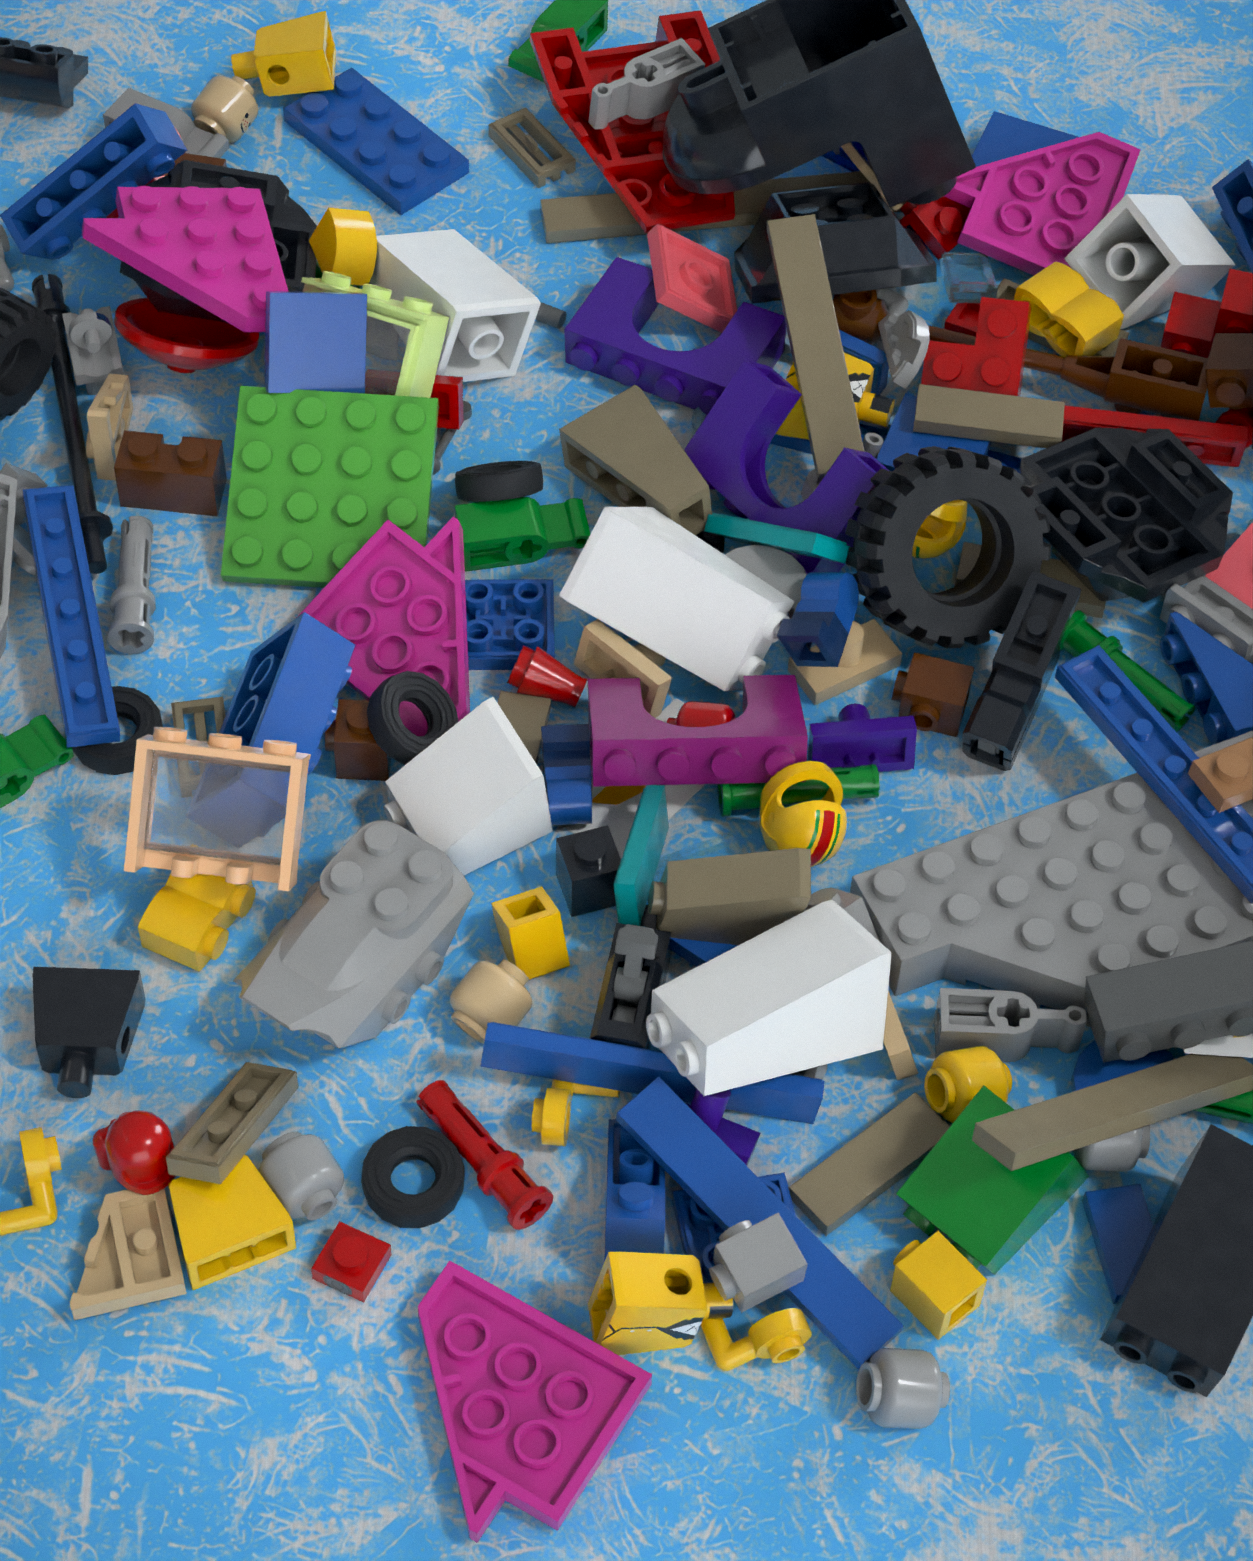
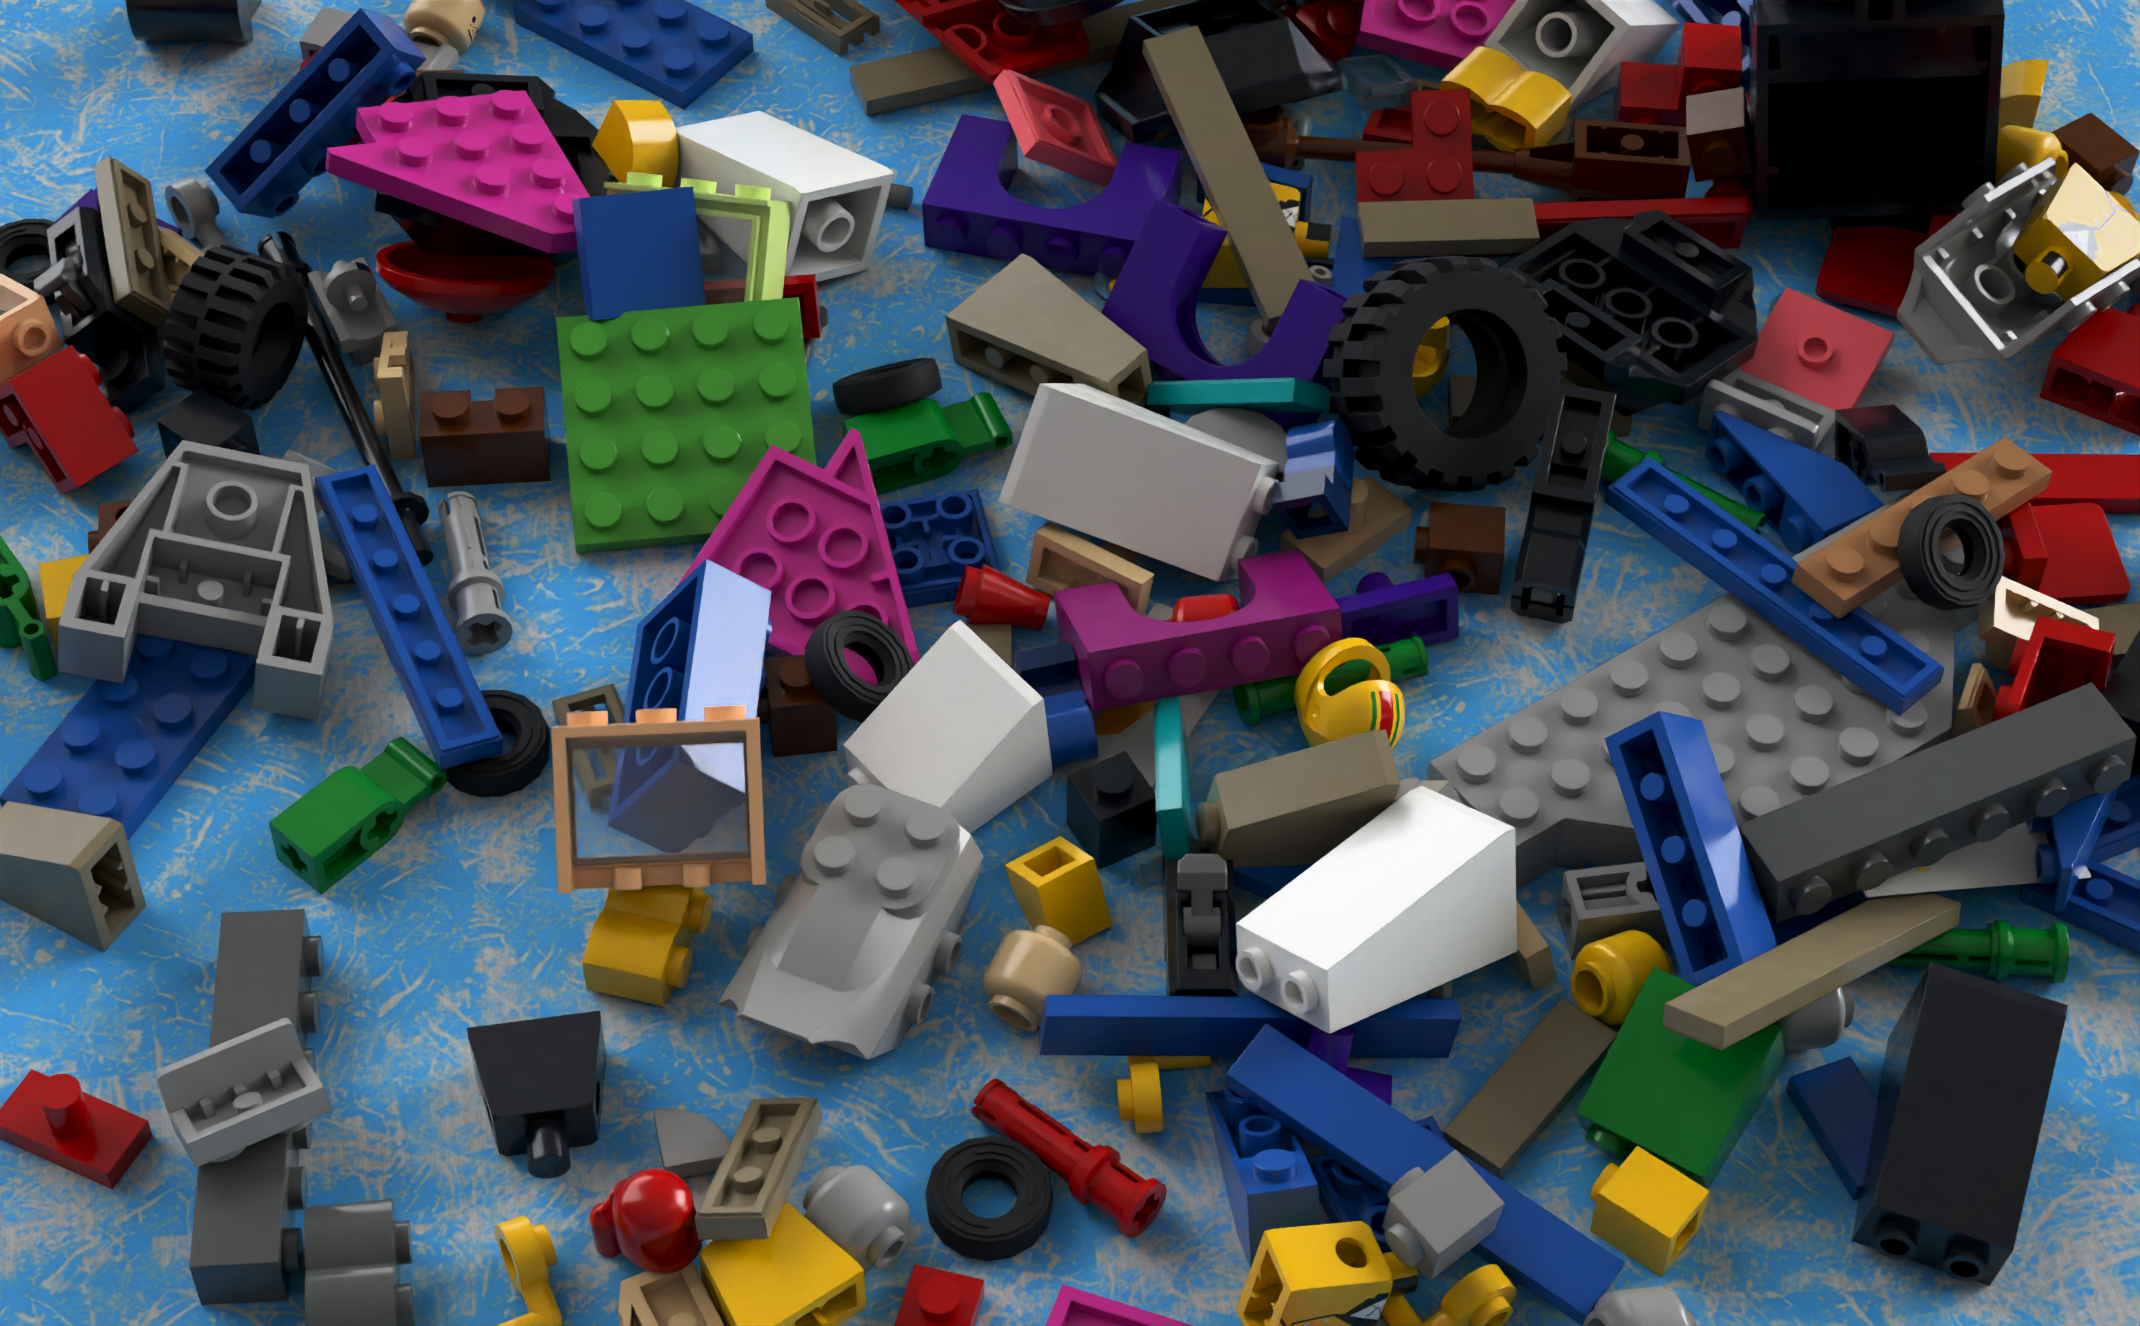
camera: 10 degrees left, 5 degrees down
(187, 1088) = (689, 1142): none -> light grey tile
(905, 344) = (1330, 161): light grey tile -> none
(1041, 989) = (1690, 845): none -> blue brick

